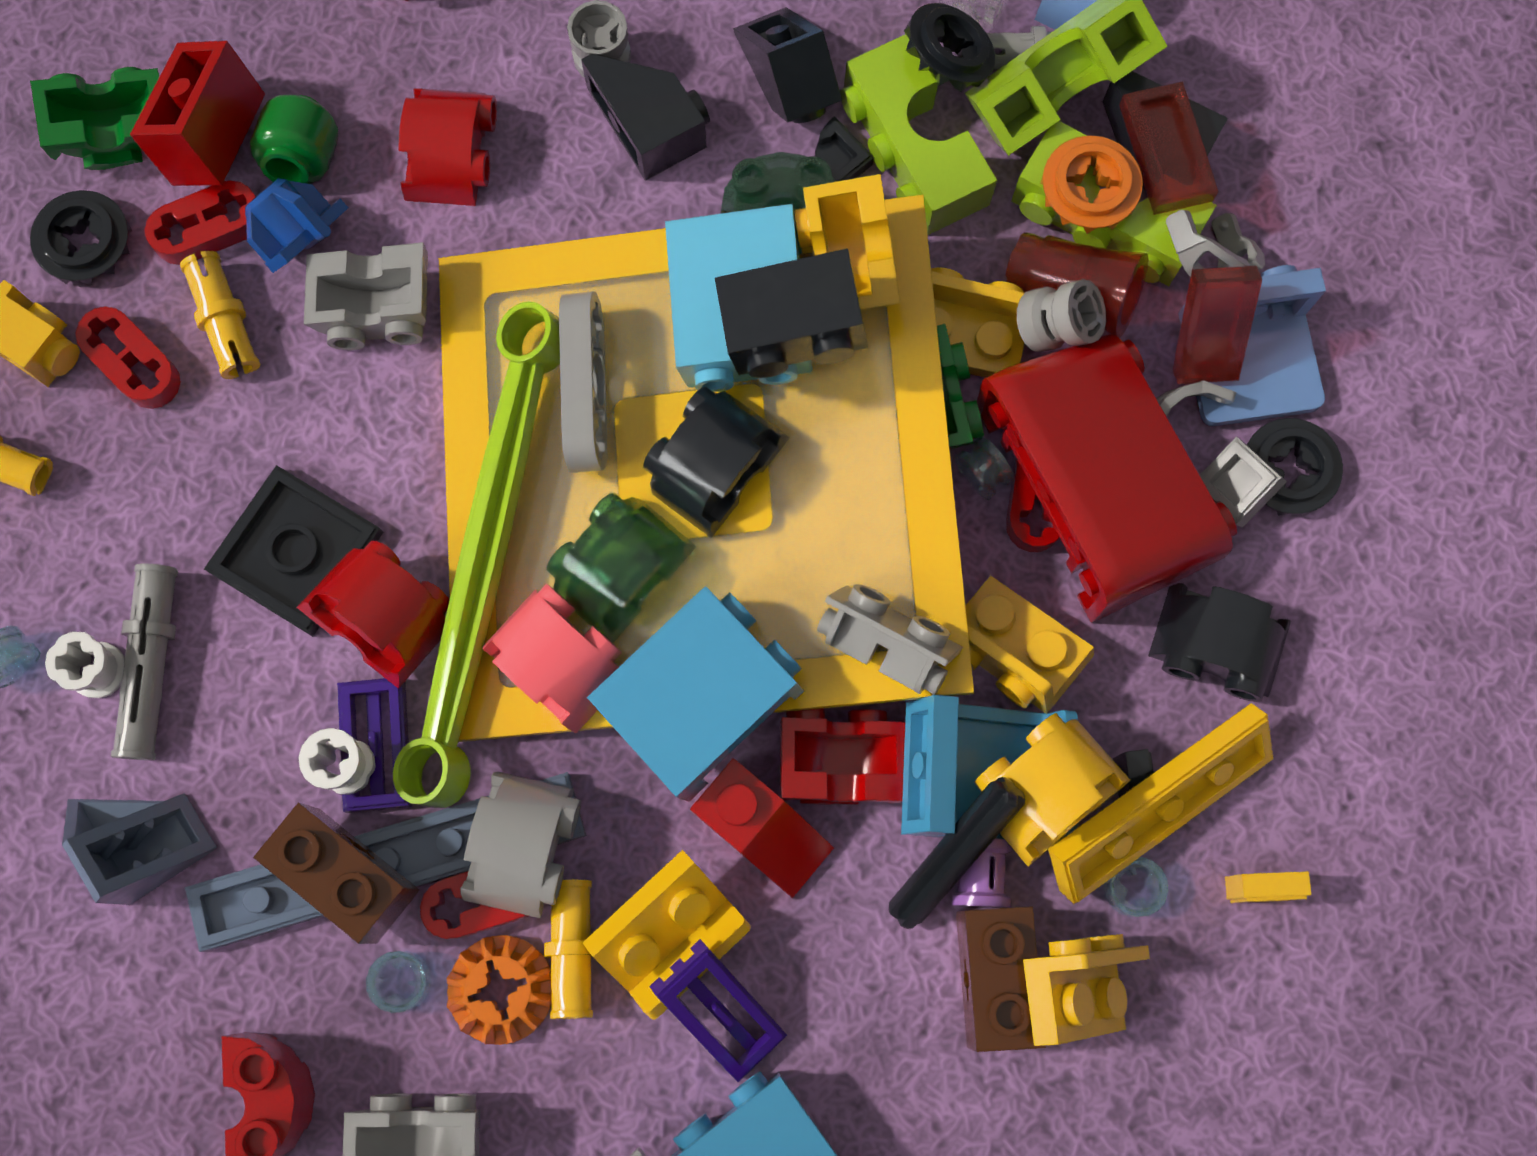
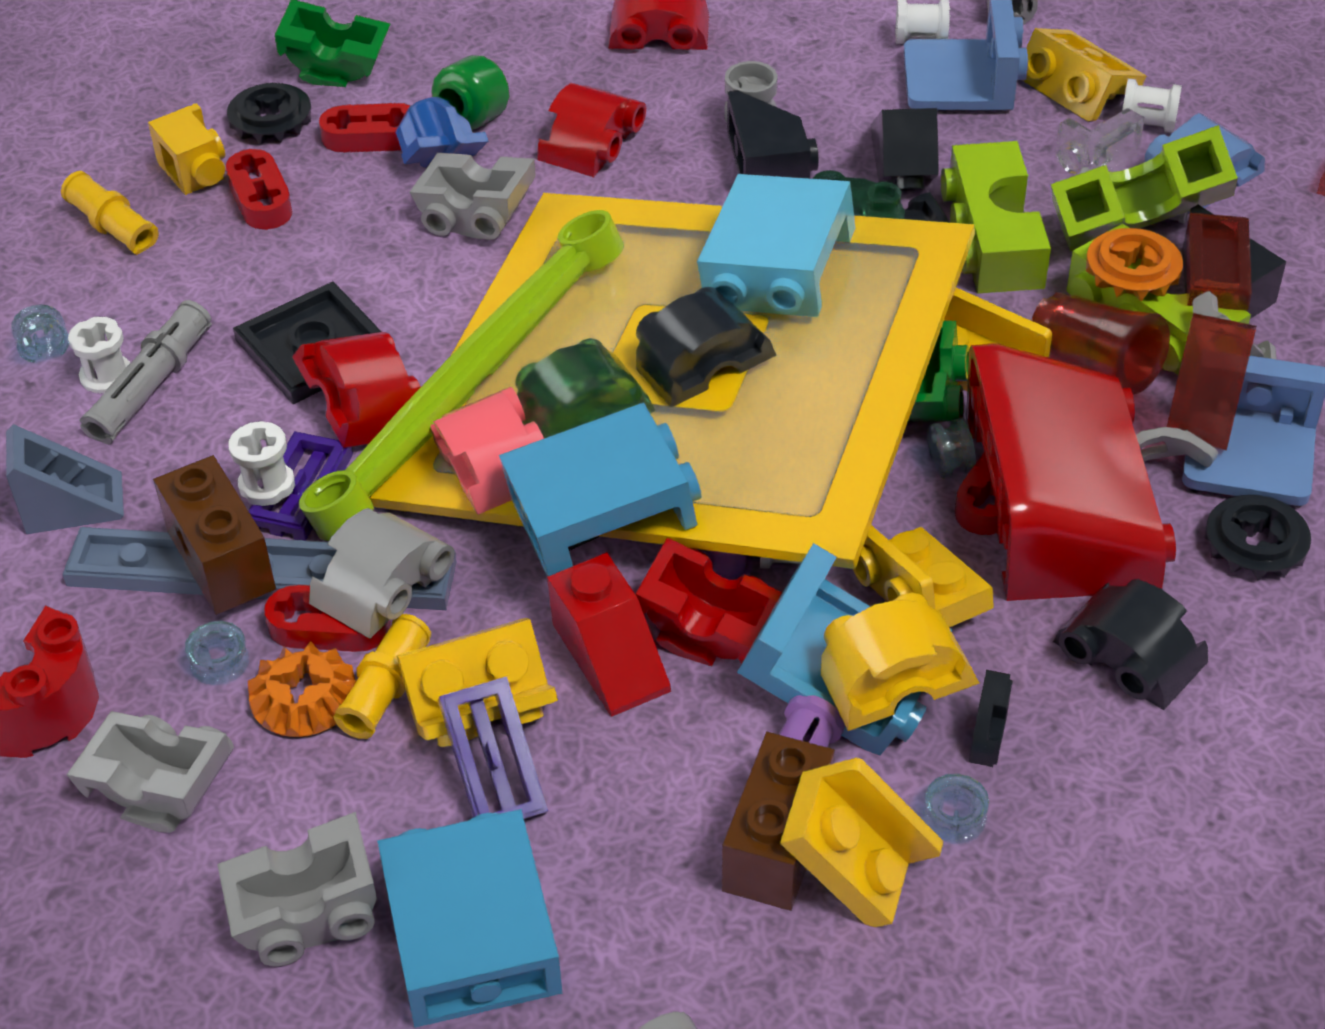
camera: 25 degrees right, 30 degrees down
(198, 113) = (403, 52): red brick -> none
(219, 314) = (346, 180): yellow pin -> none
(582, 382) = (615, 275): light grey beam -> none
(791, 314) = (810, 229): black brick -> none
(854, 218) = (887, 223): yellow cylinder -> none
(913, 643) = (810, 503): light grey hinge -> none
(956, 852) = (779, 689): black axle -> none
(959, 34) = (1045, 151): black gear -> none
(1063, 315) = (1072, 335): light grey wheel -> none
(1161, 803) = (1009, 731): yellow tile -> none
(1241, 481) = (1200, 523): light grey tile -> none
(1268, 887) = (1092, 841): yellow tile -> none

